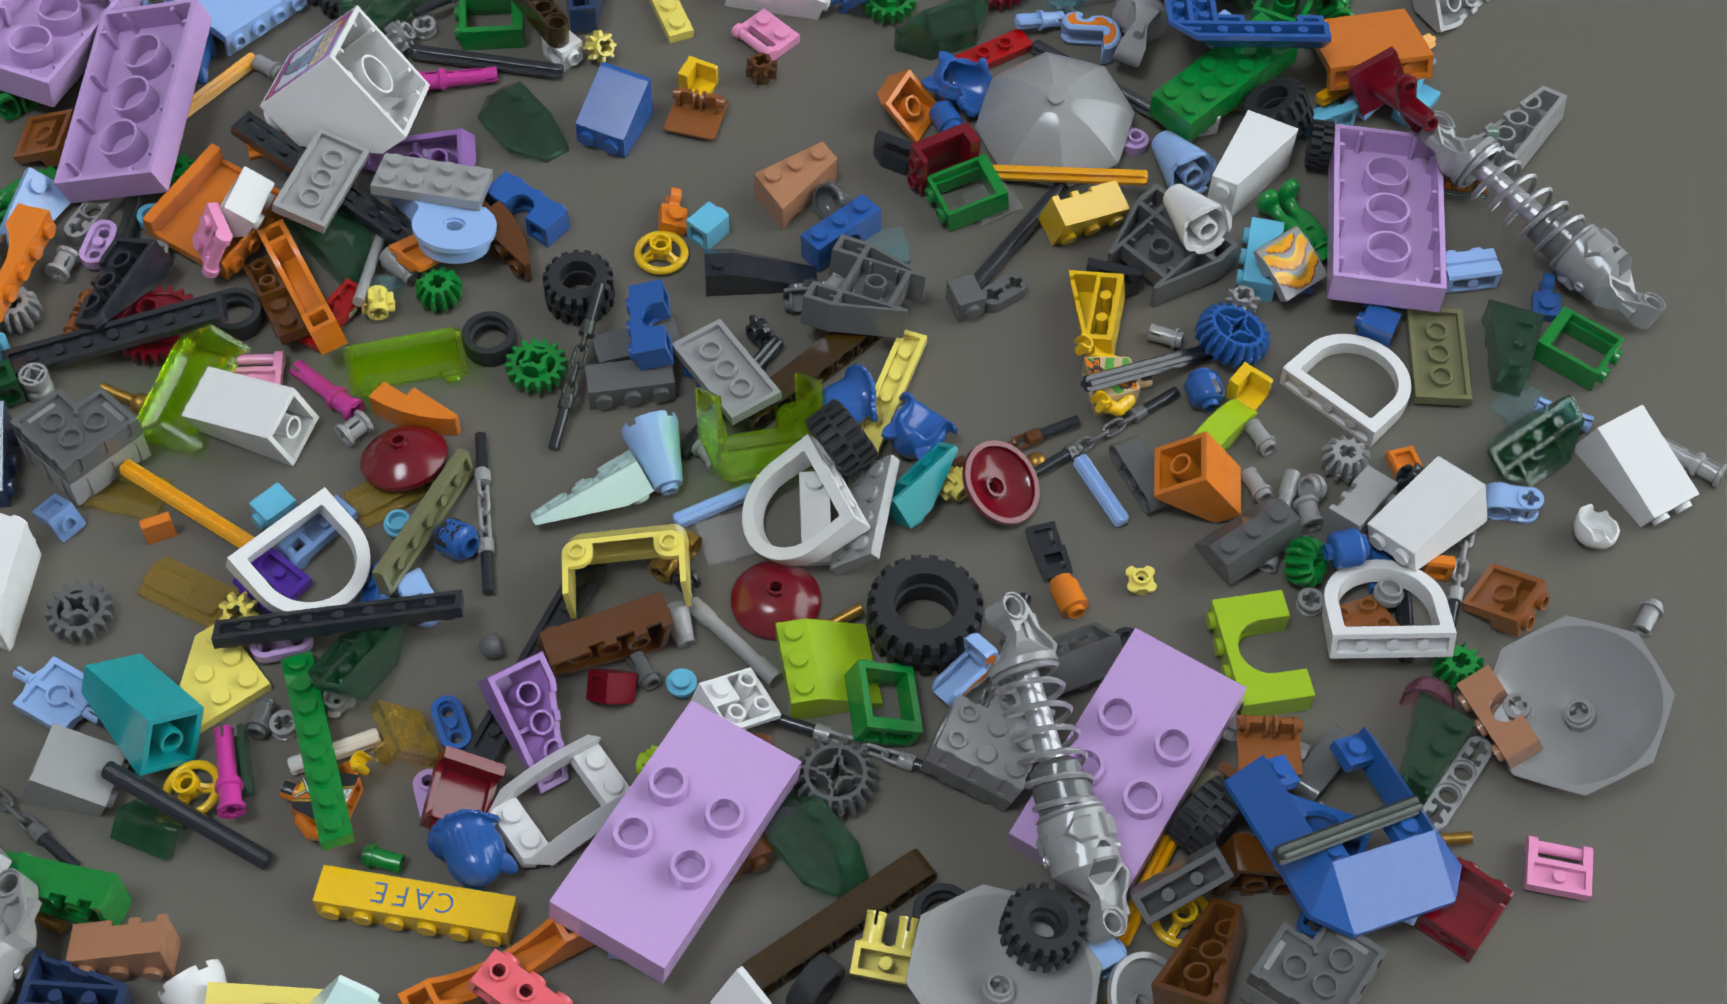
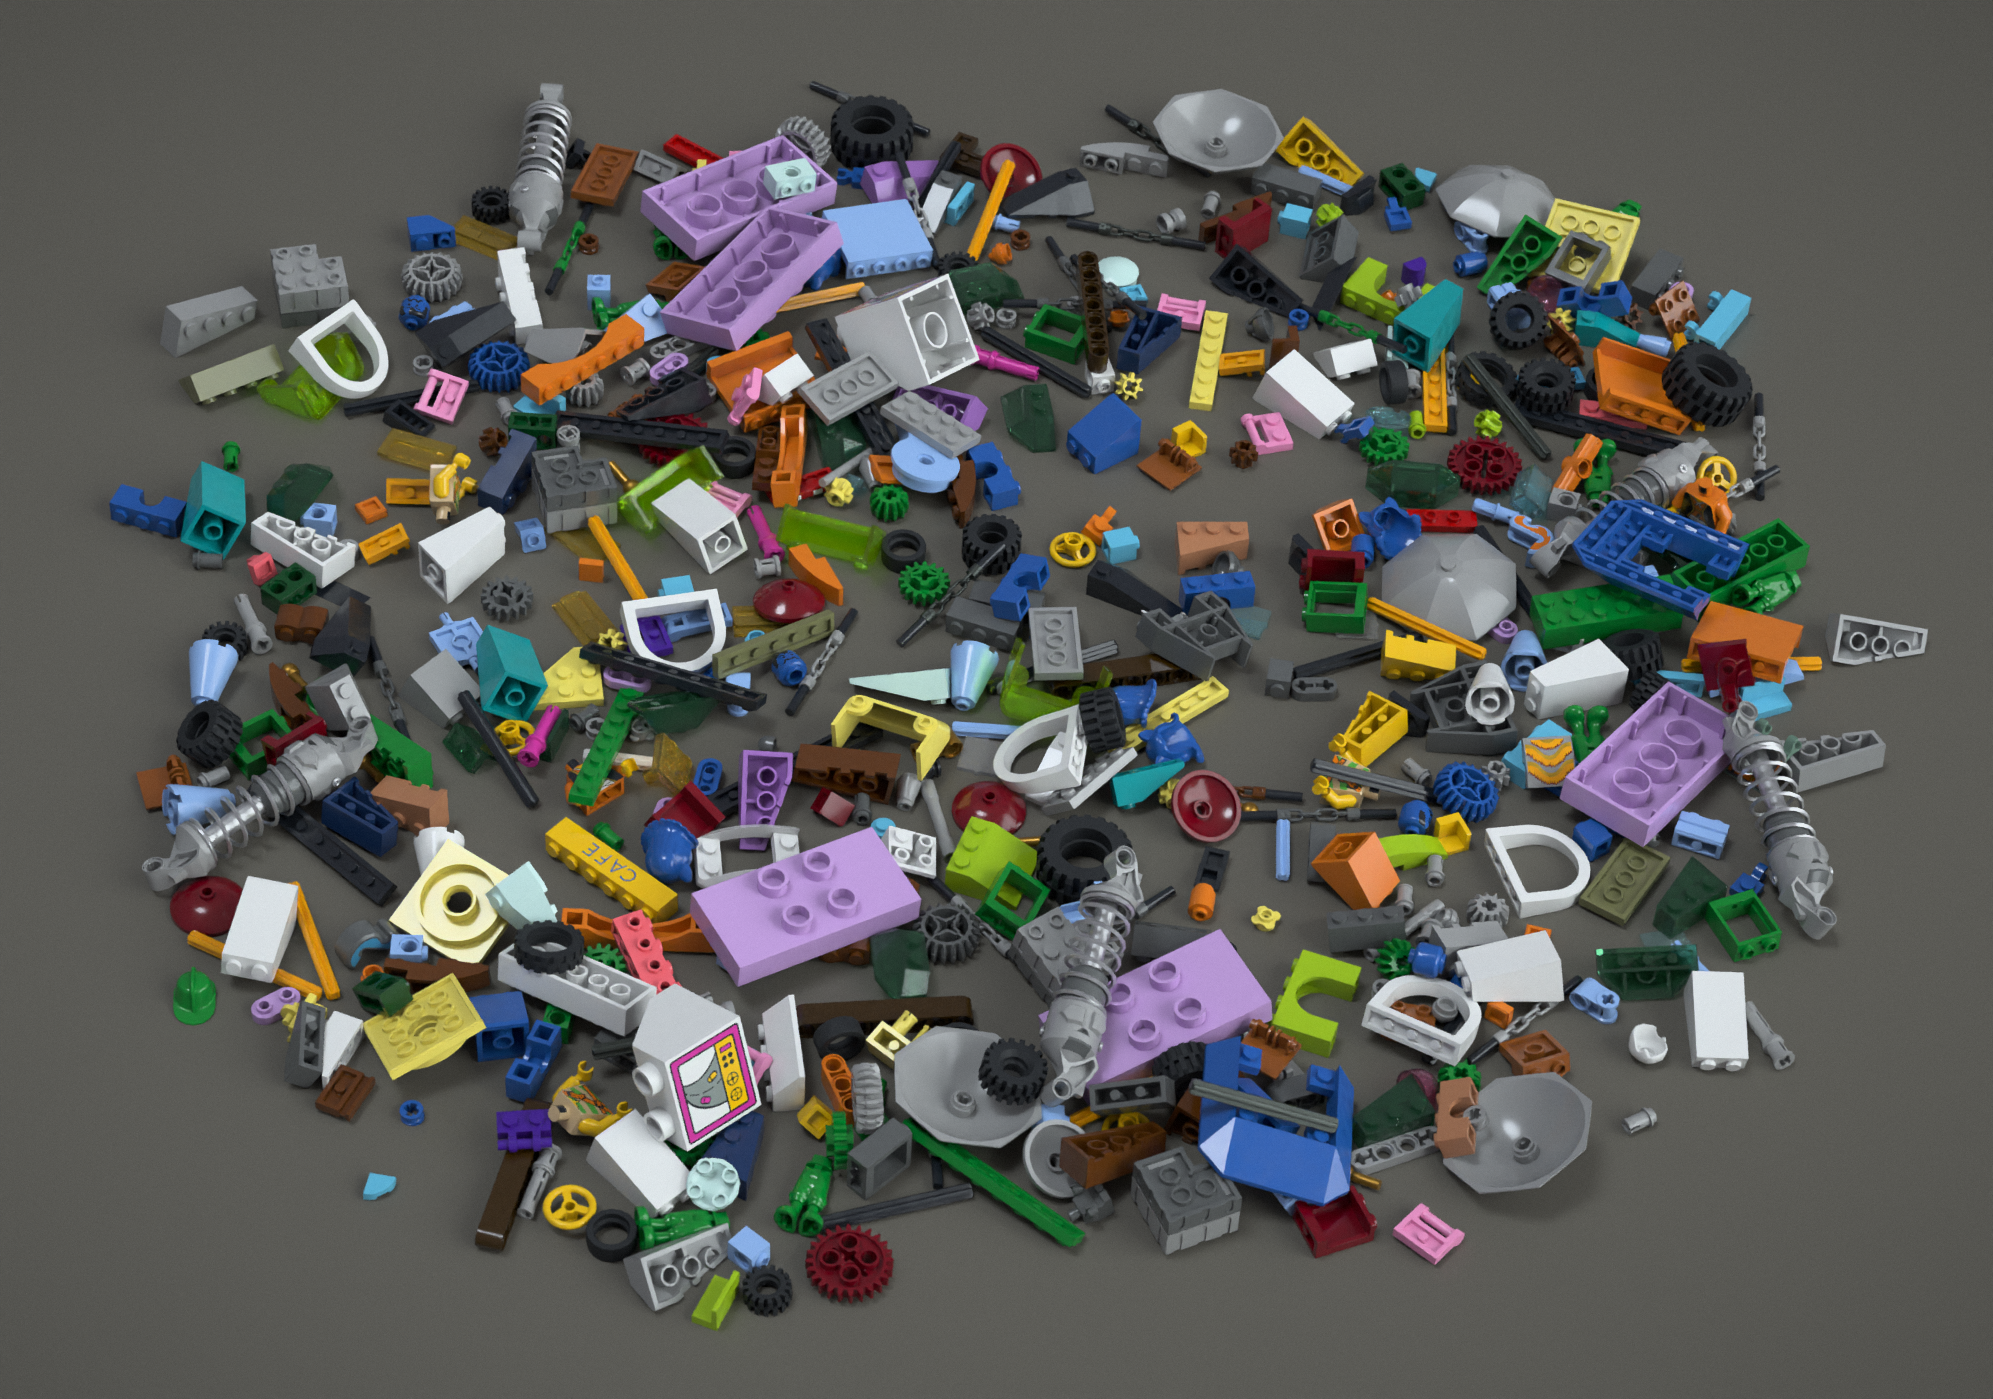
camera: 30 degrees right, 10 degrees down
(758, 330) = (1104, 631): black plate -> none

